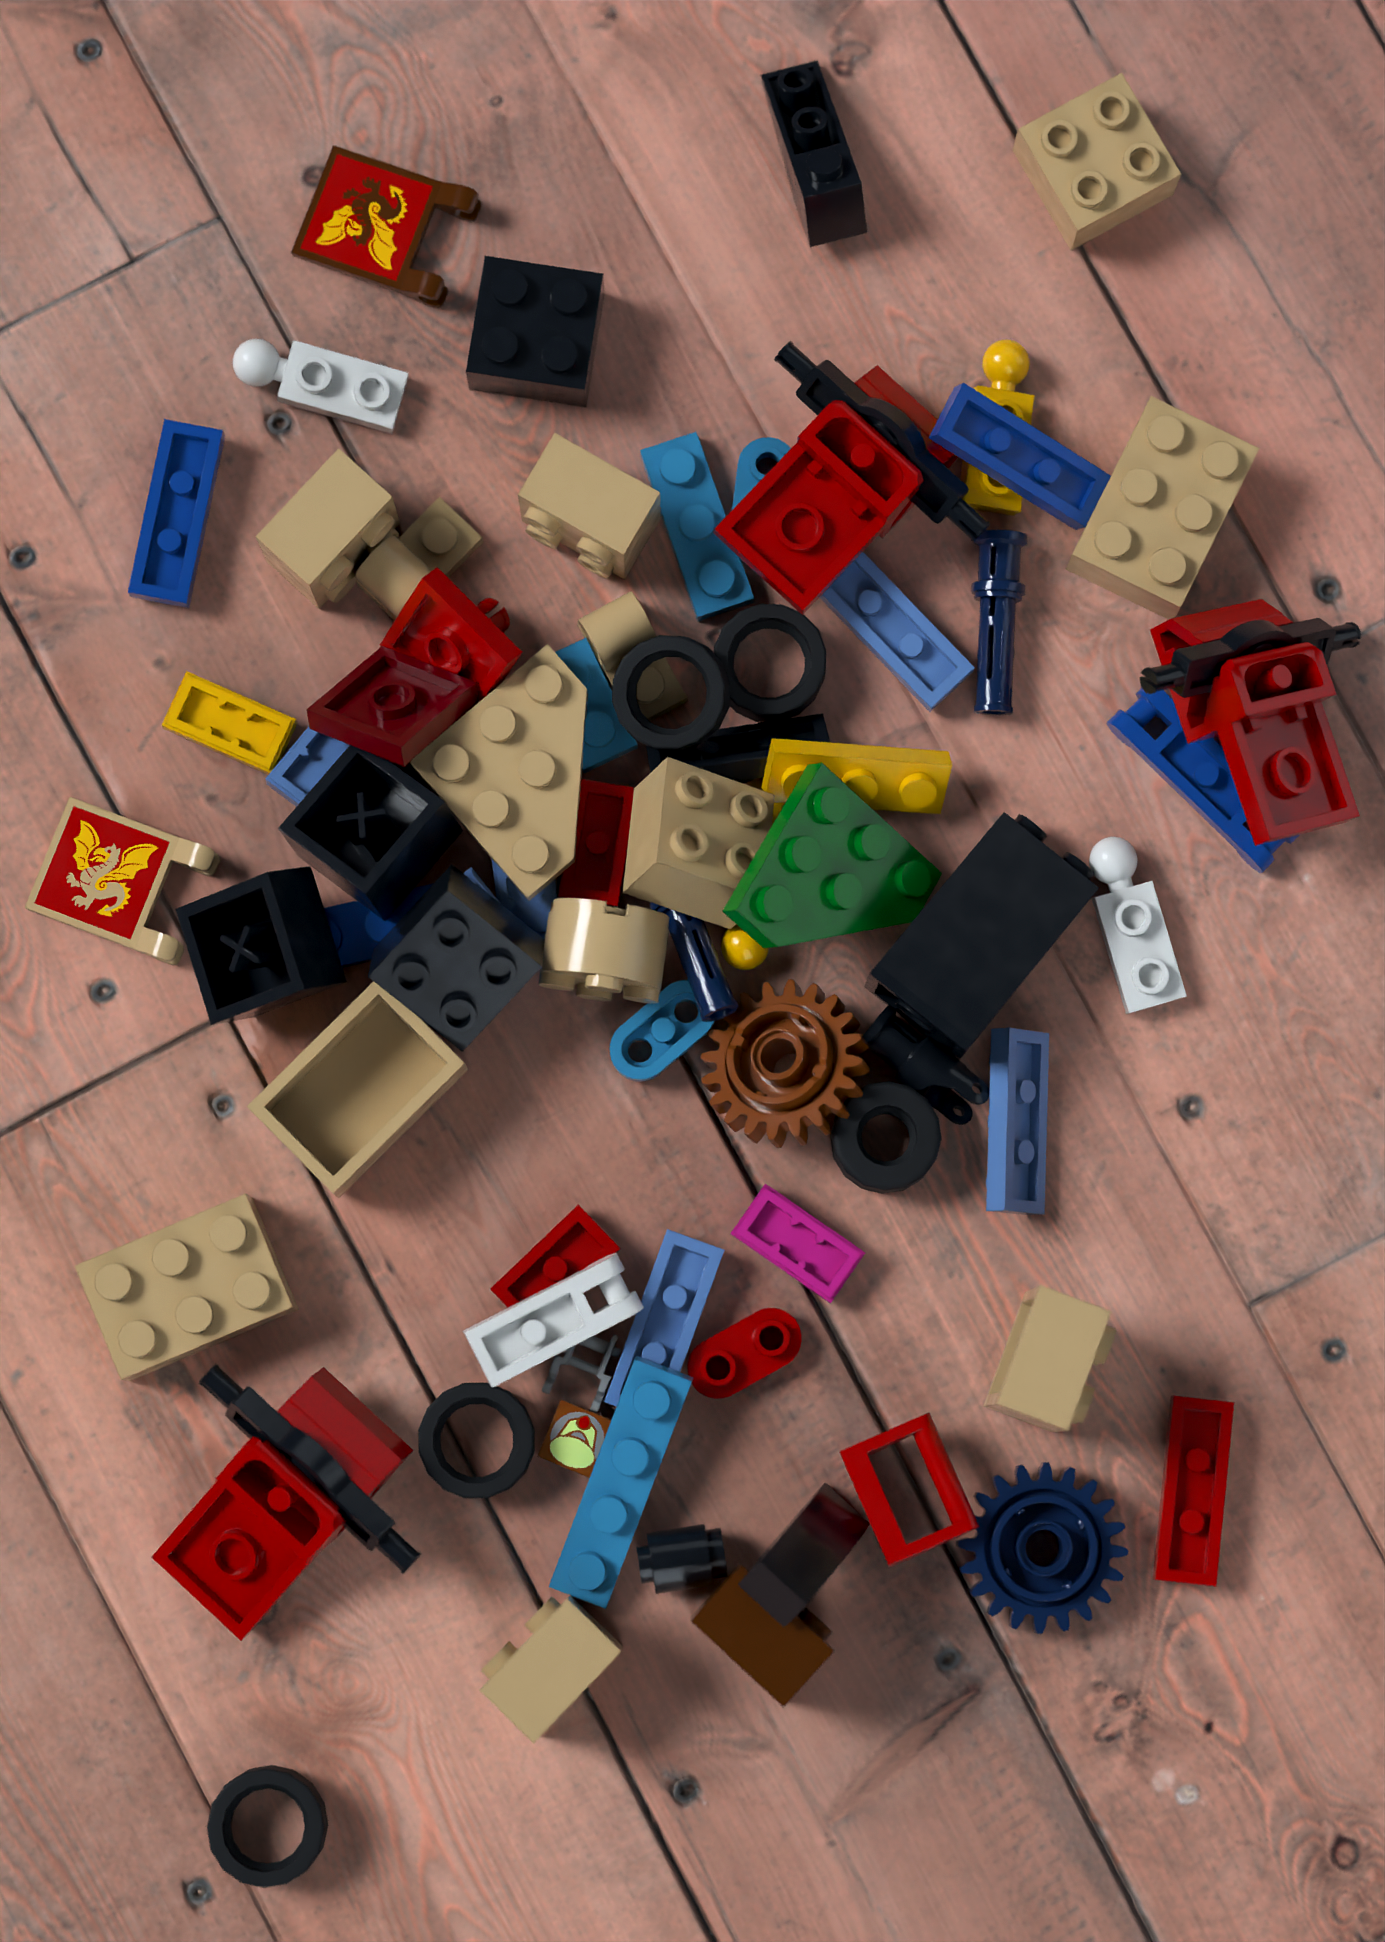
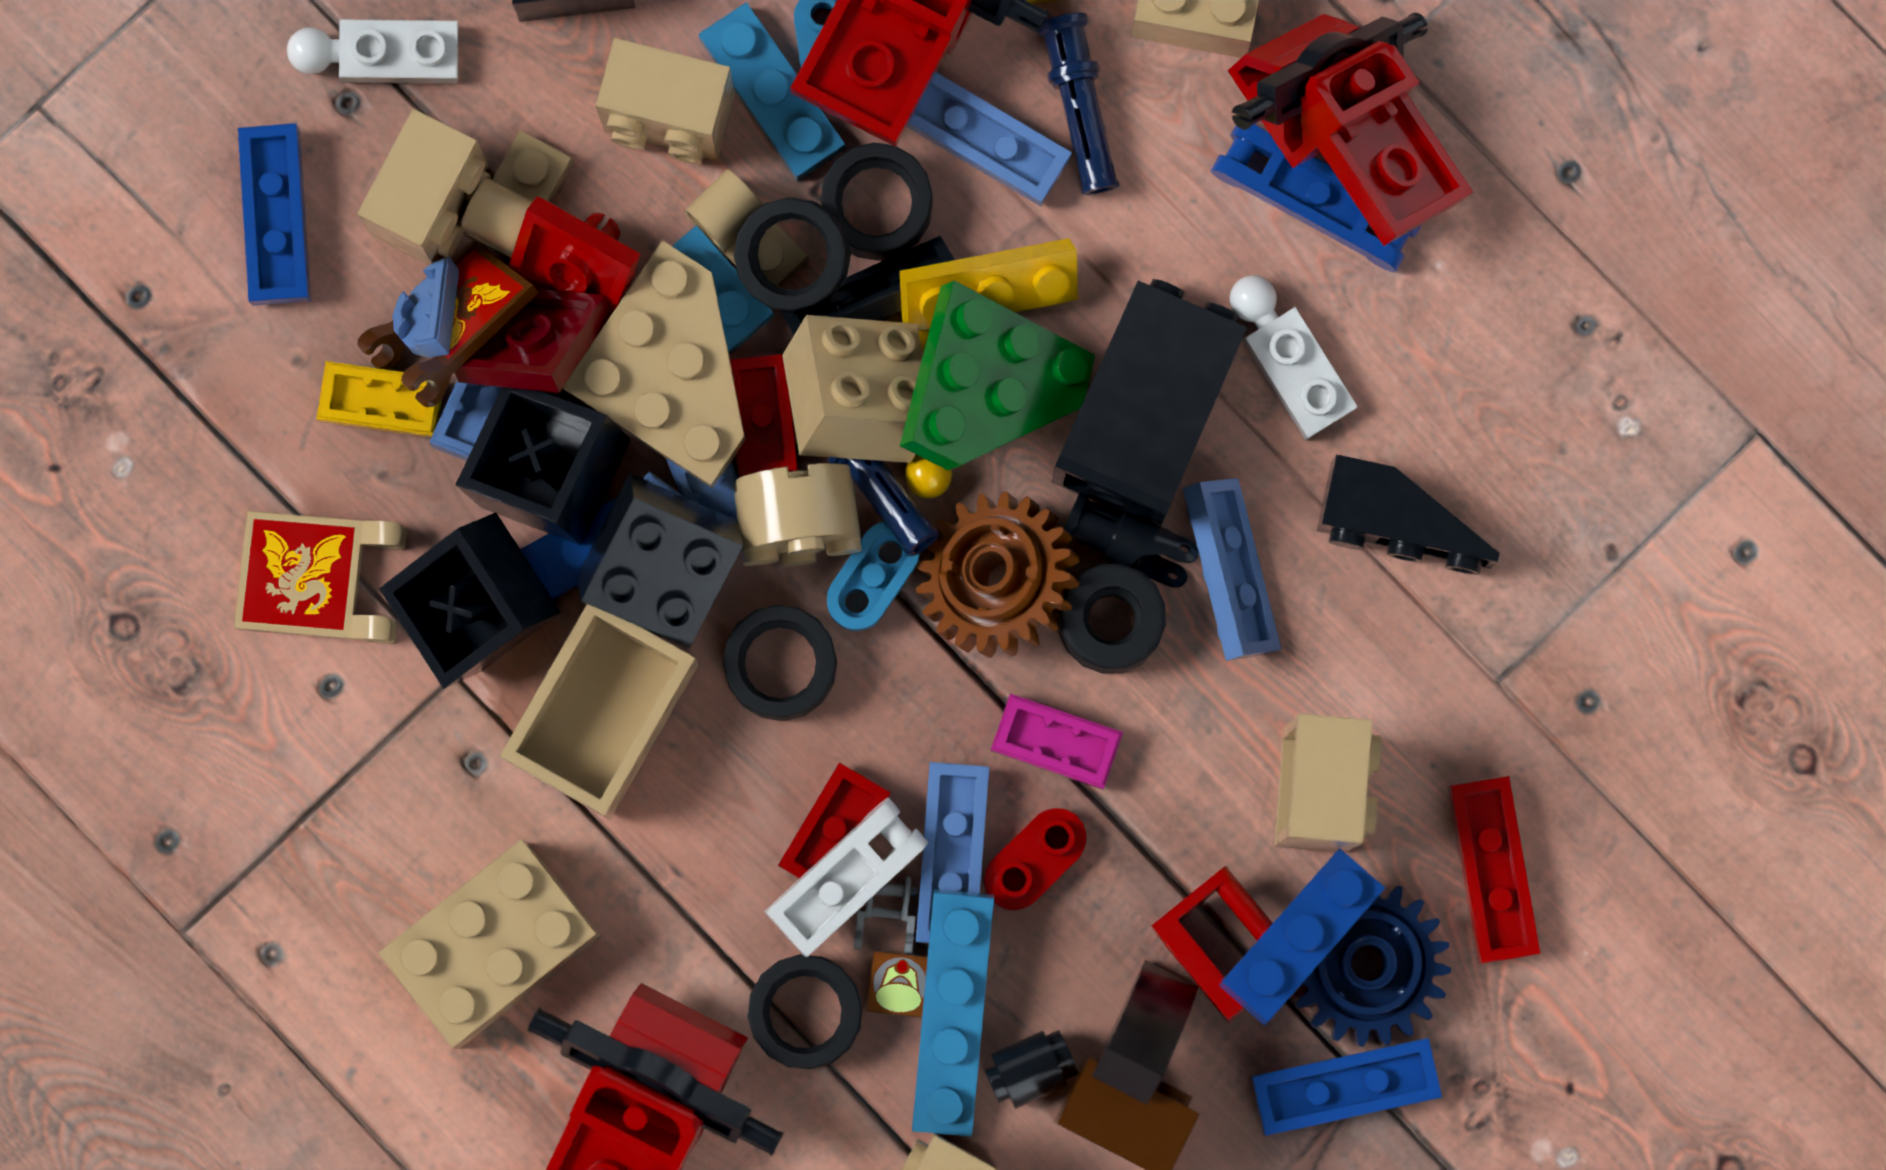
camera: 15 degrees left, 0 degrees up
(296, 654) = (427, 314): none -> medium blue tile
(318, 665) = (485, 301): none -> reddish brown flag
(502, 1087) = (786, 618): none -> black tyre
(984, 1504) = (1302, 936): none -> blue plate
(987, 1663) = (1346, 1086): none -> blue plate
(1187, 1104) = (1388, 509): none -> black slope

